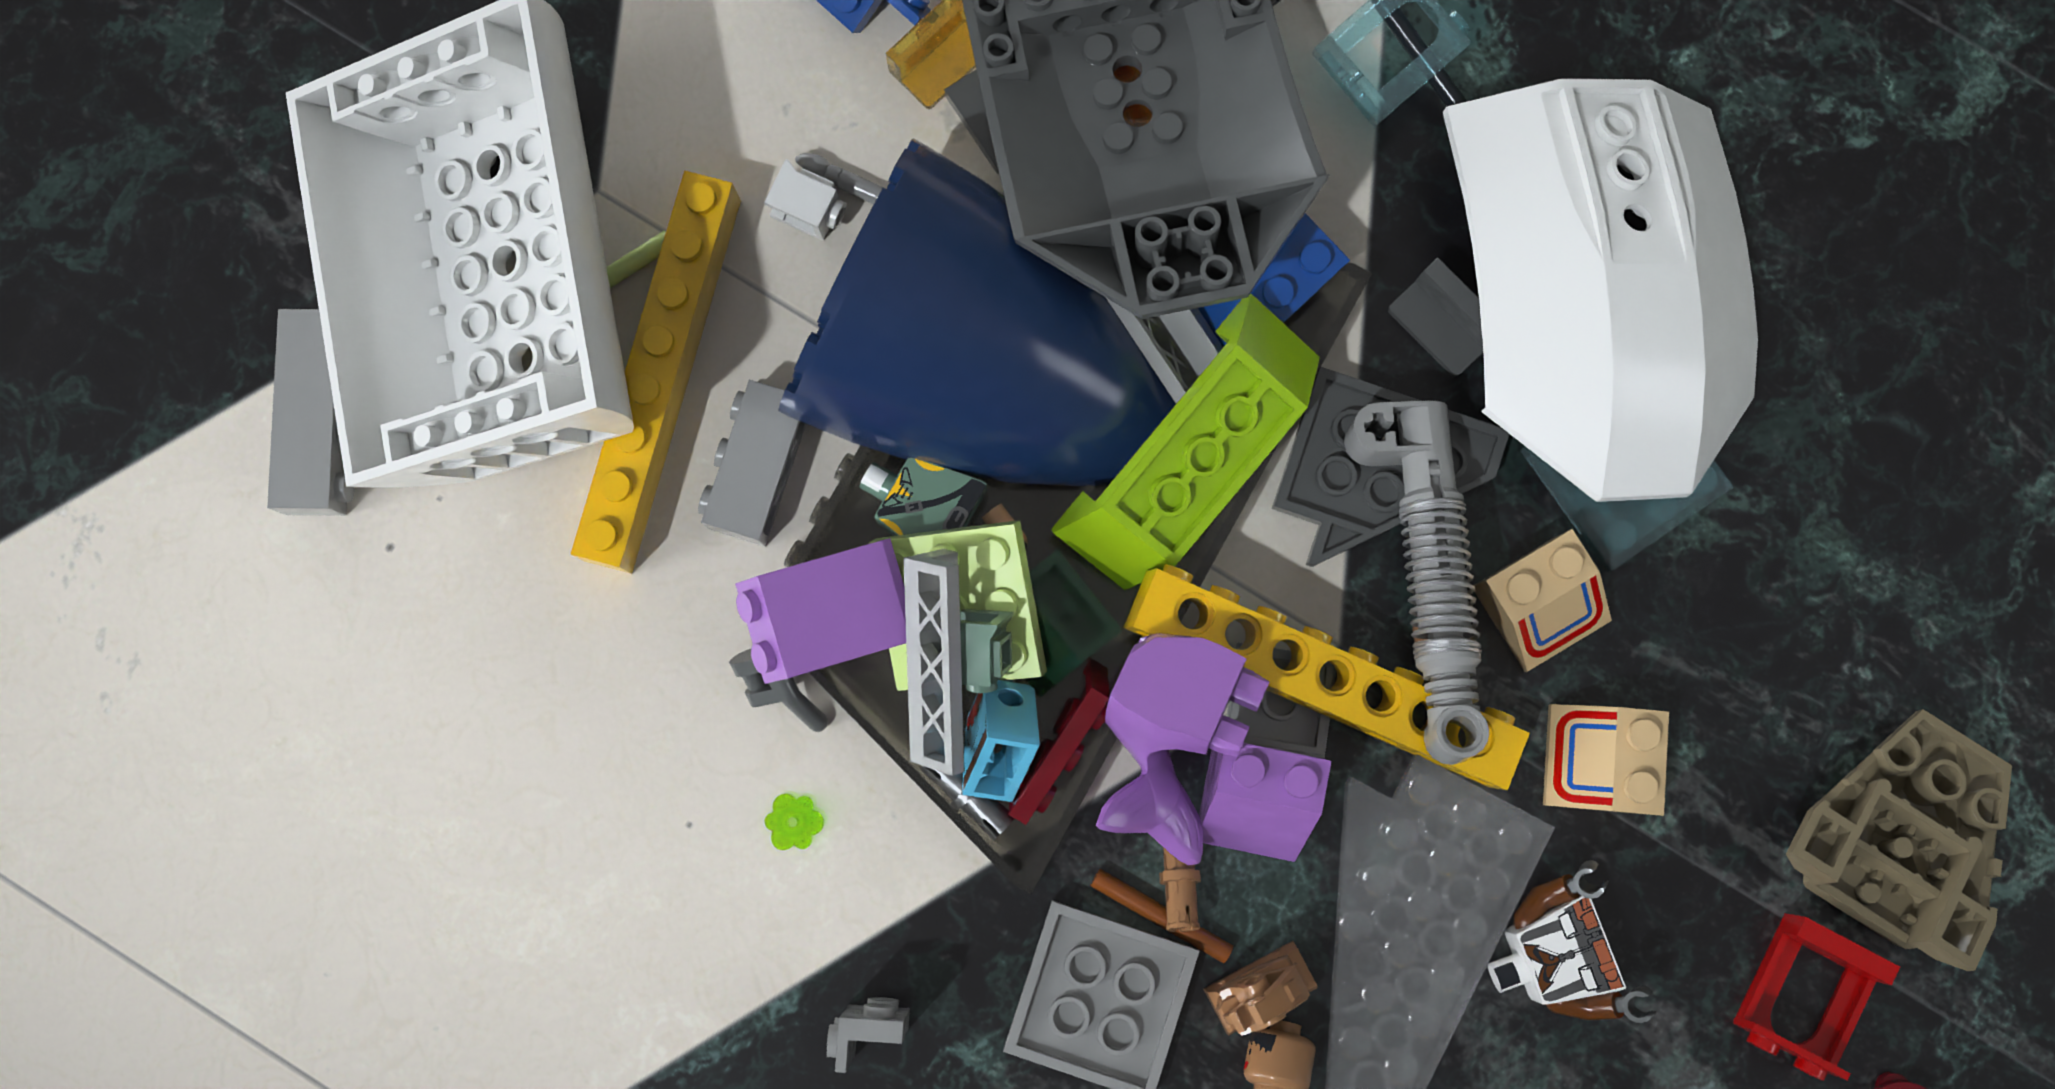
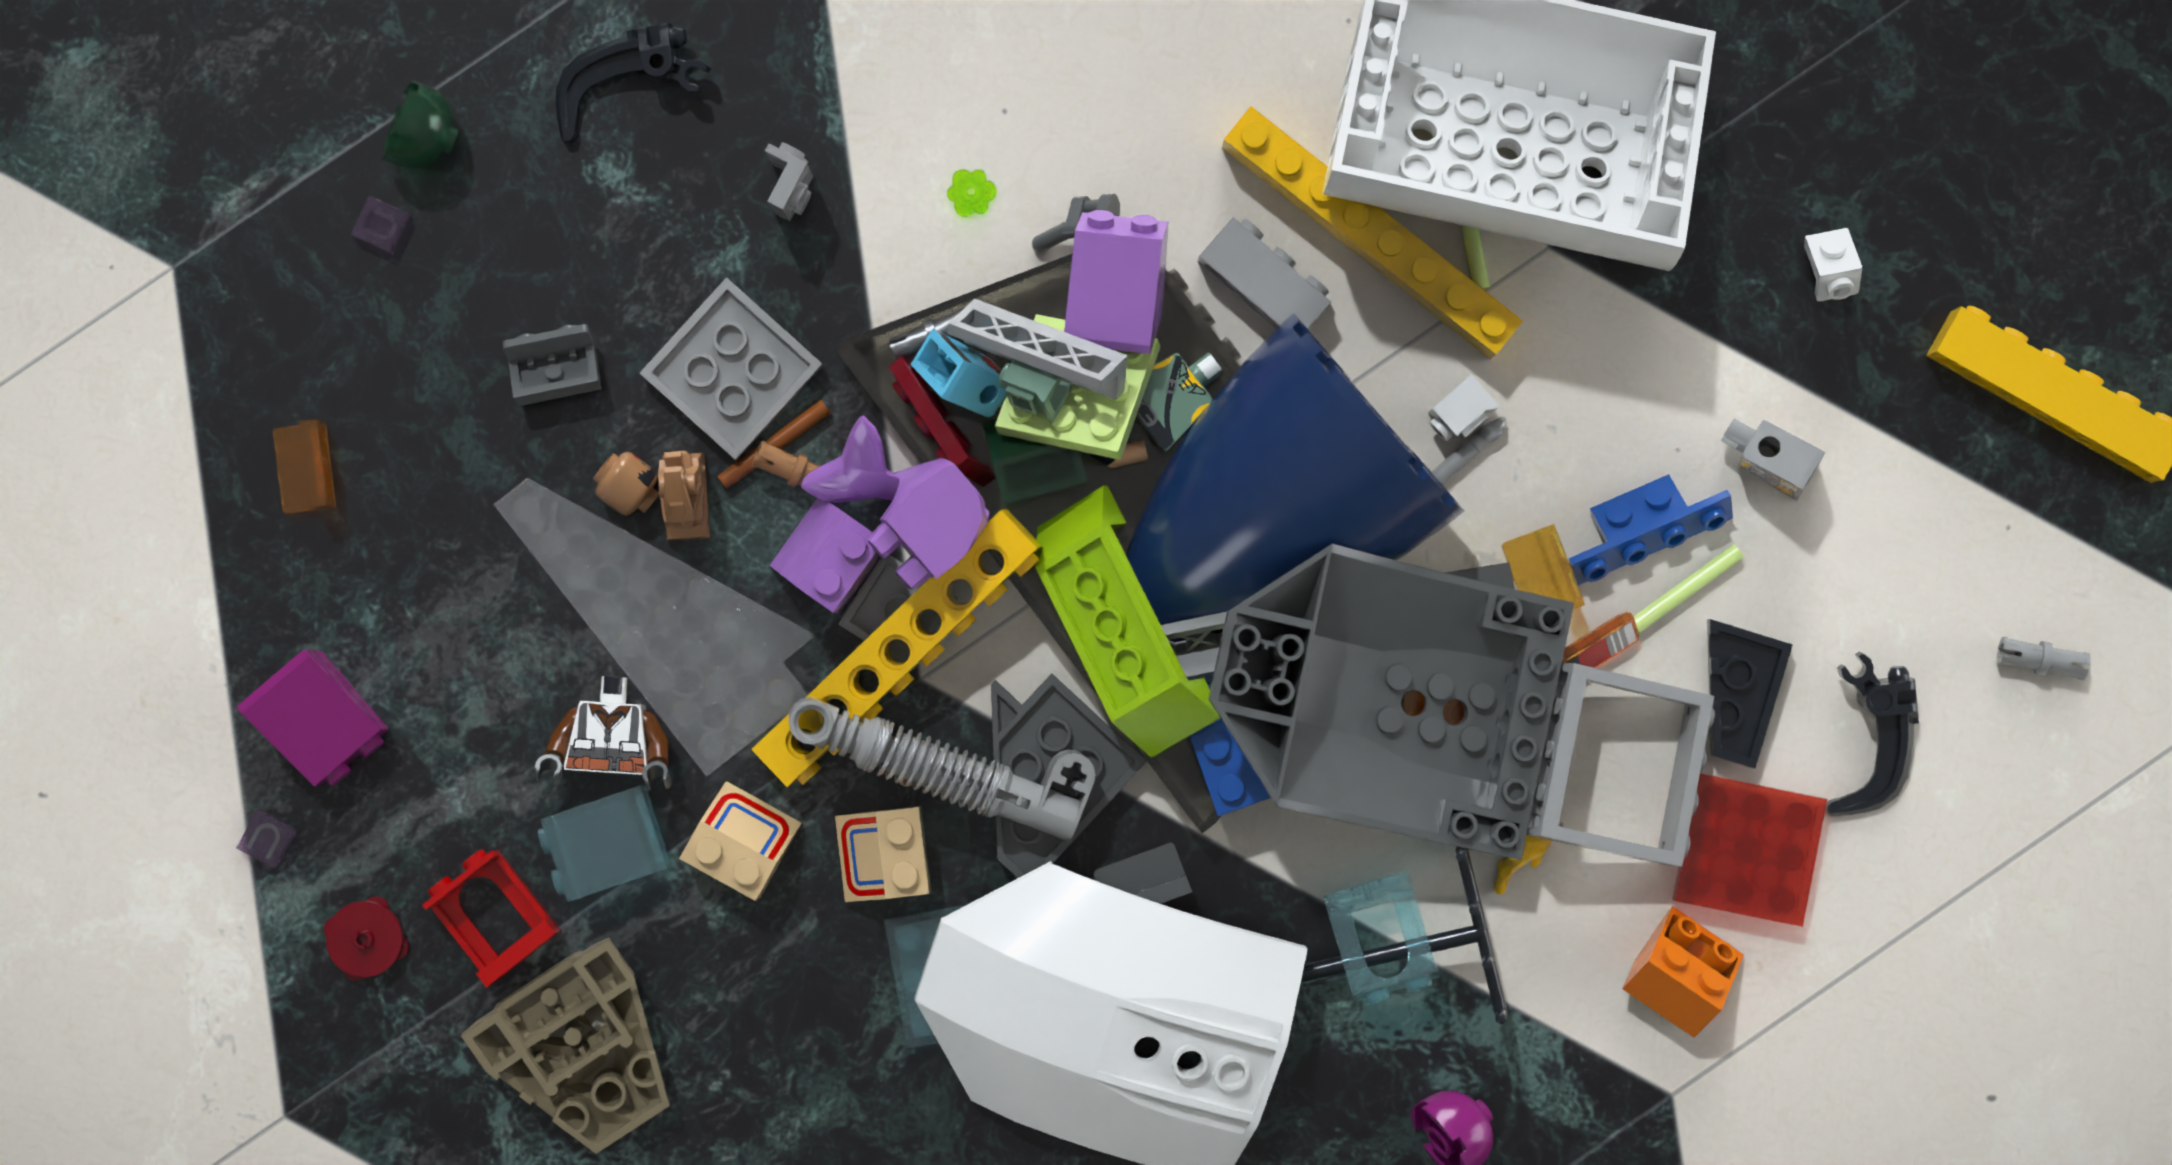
camera: 110 degrees right, 5 degrees up
(1680, 906) = (604, 843): none -> clear light blue panel

